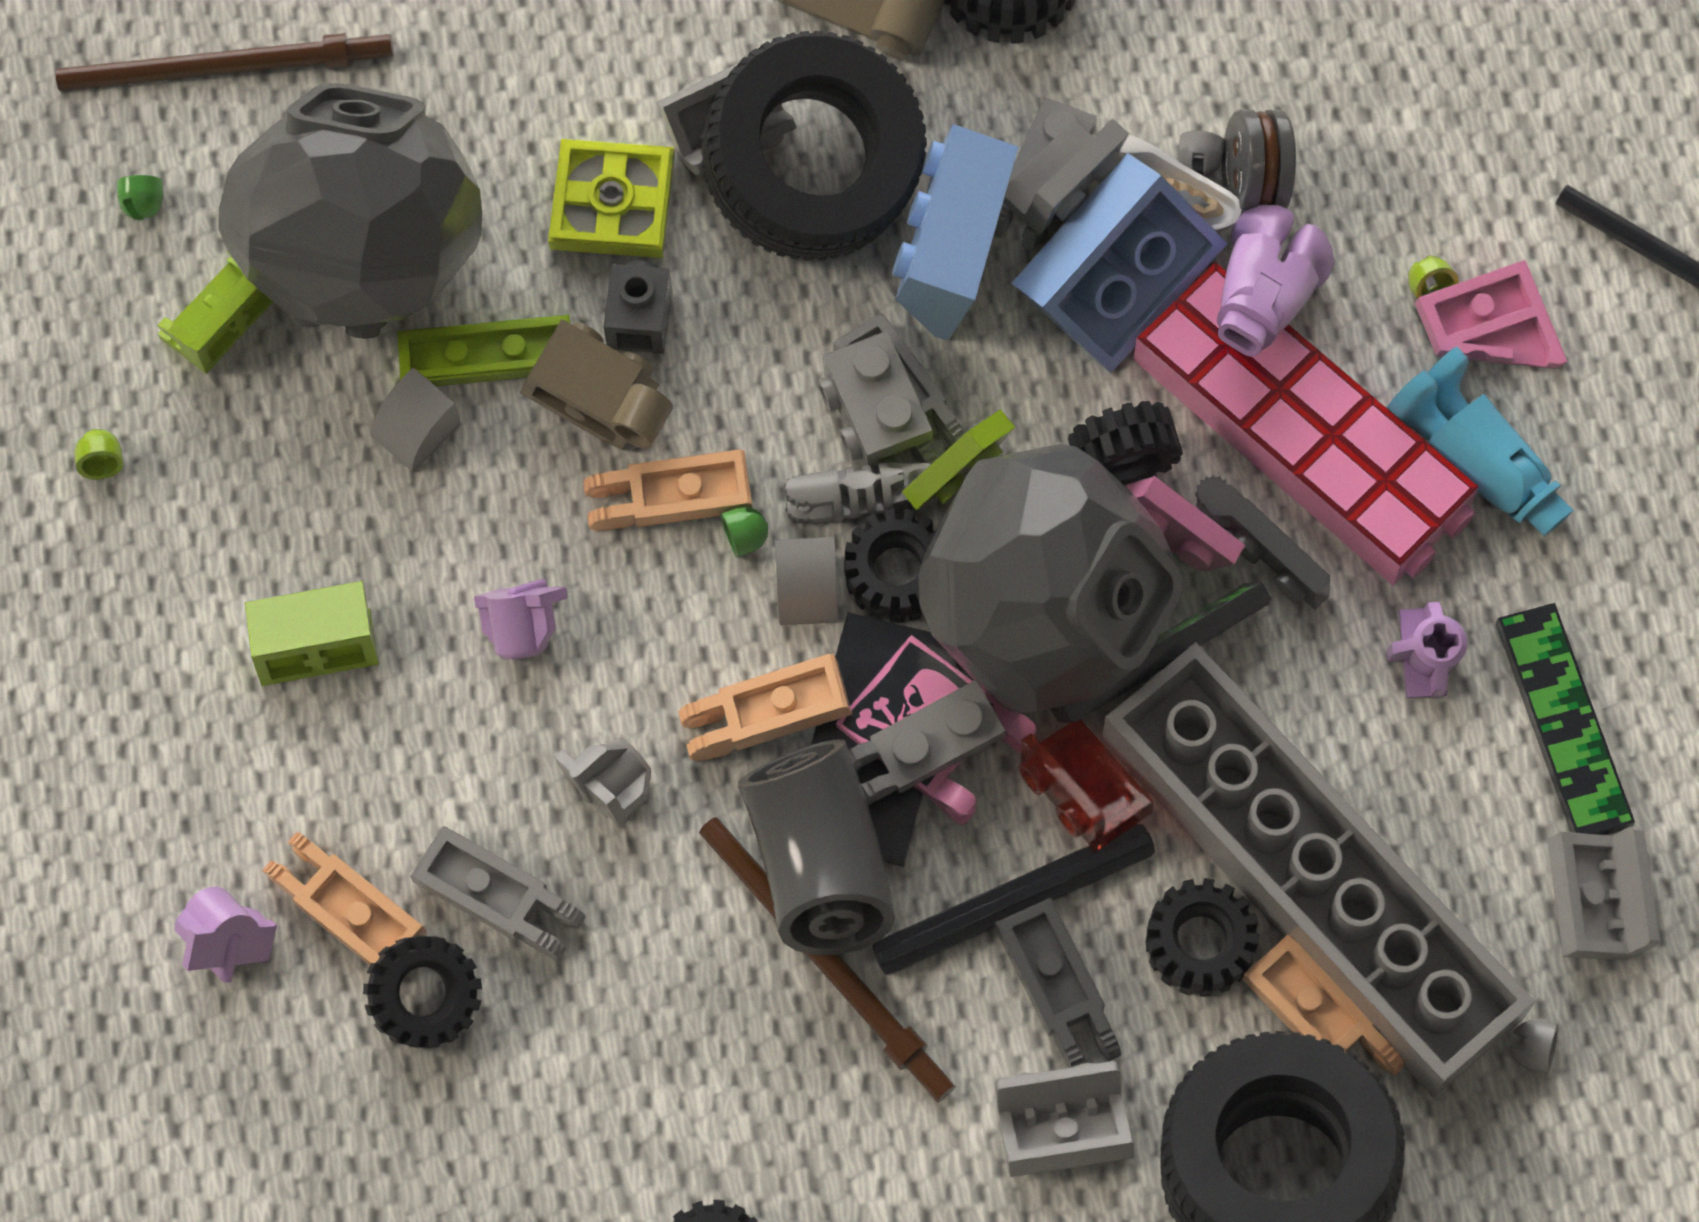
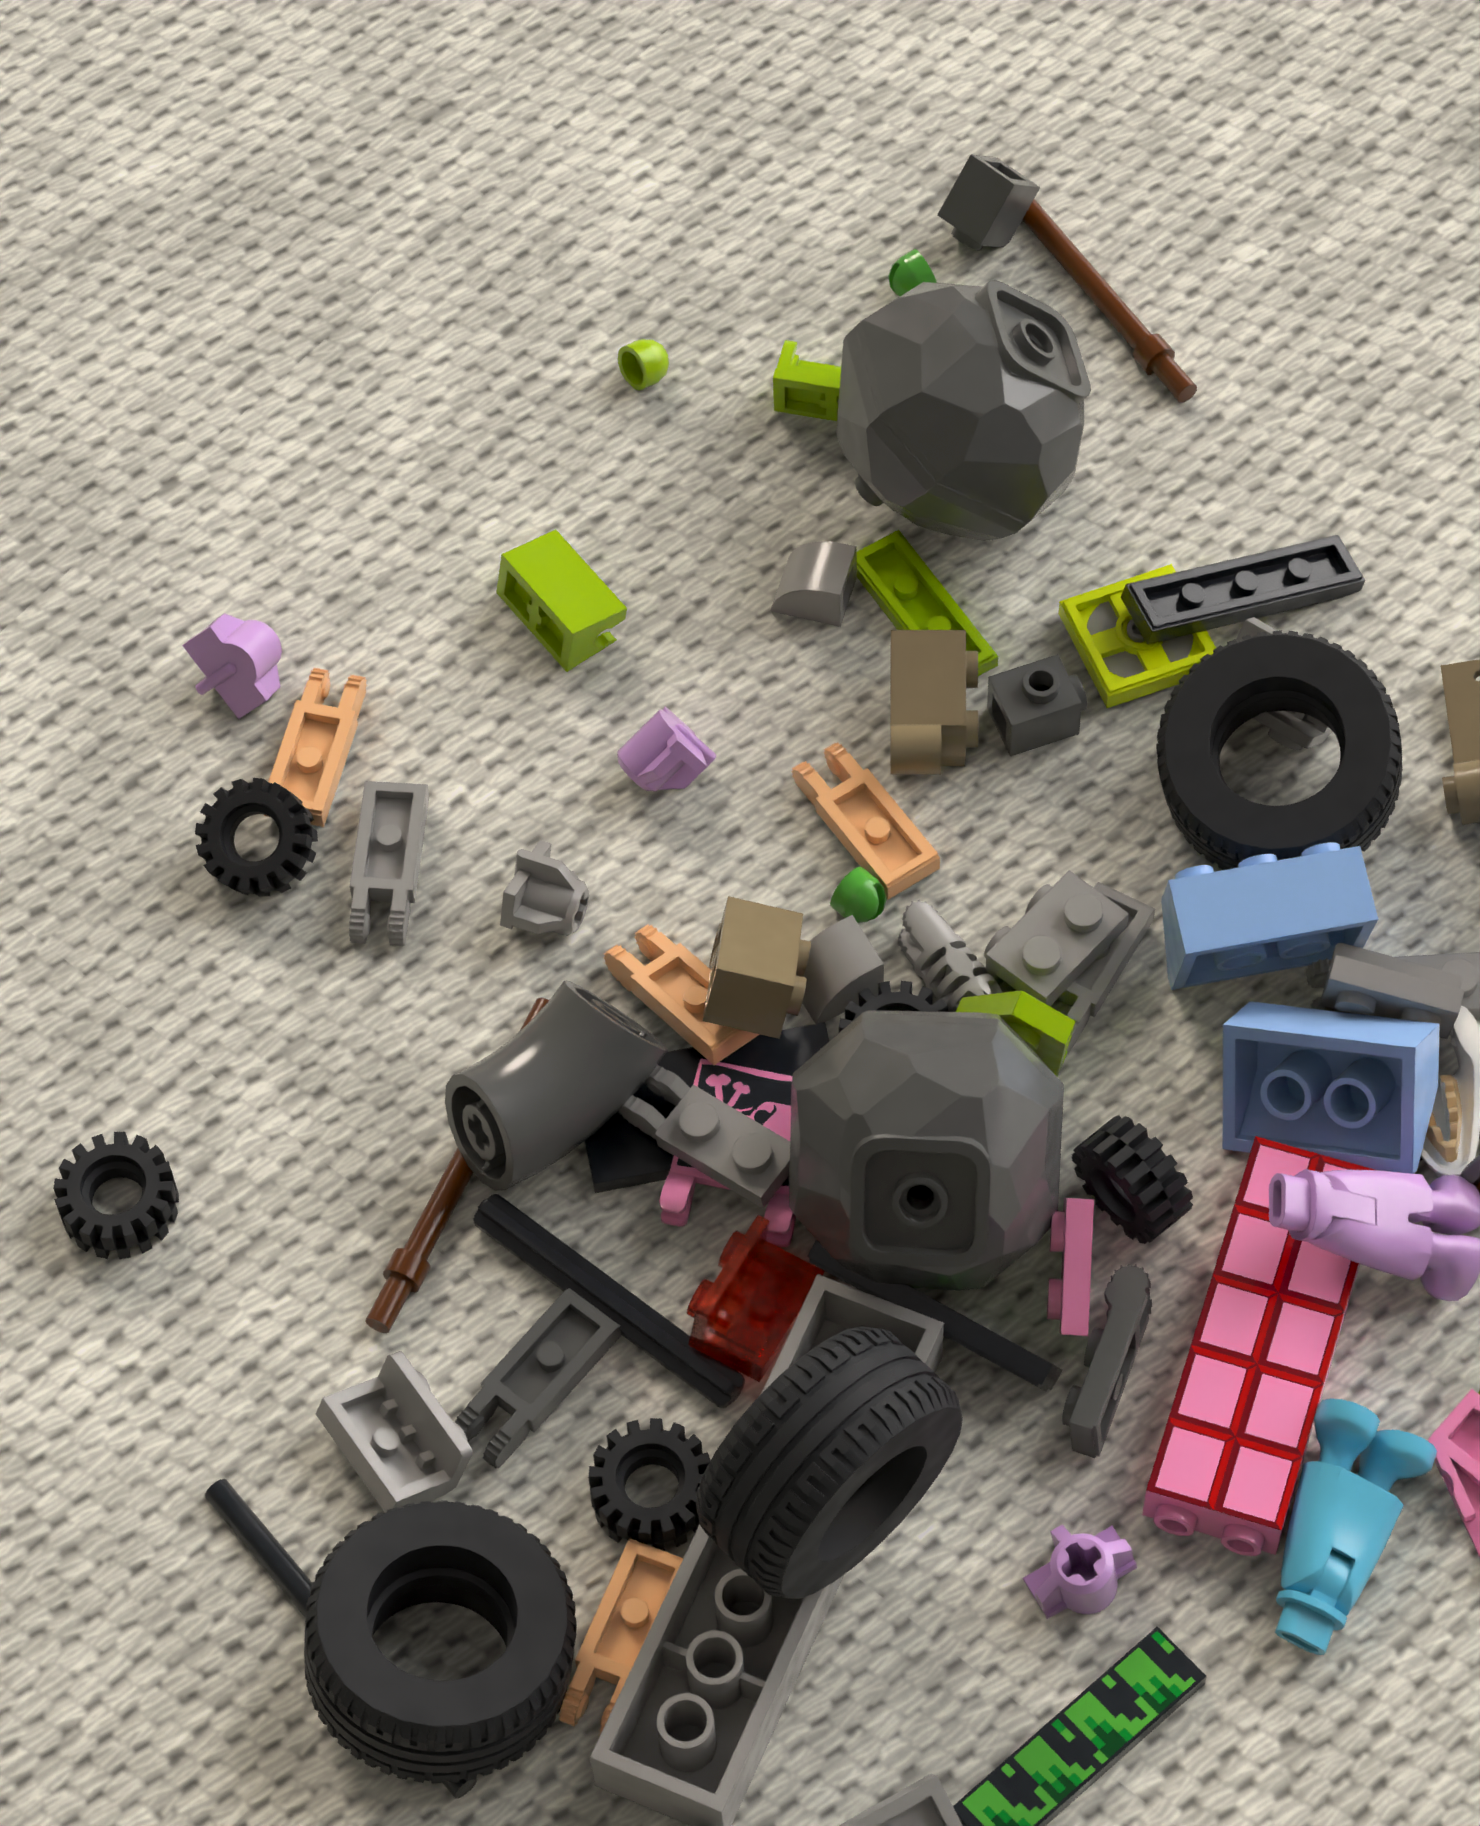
camera: 65 degrees right, 10 degrees down
(110, 97) = (987, 202): none -> dark grey brick
(617, 99) = (1242, 589): none -> black tile
(790, 637) = (756, 968): none -> dark tan hinge
(1335, 768) = (828, 1461): none -> black tyre

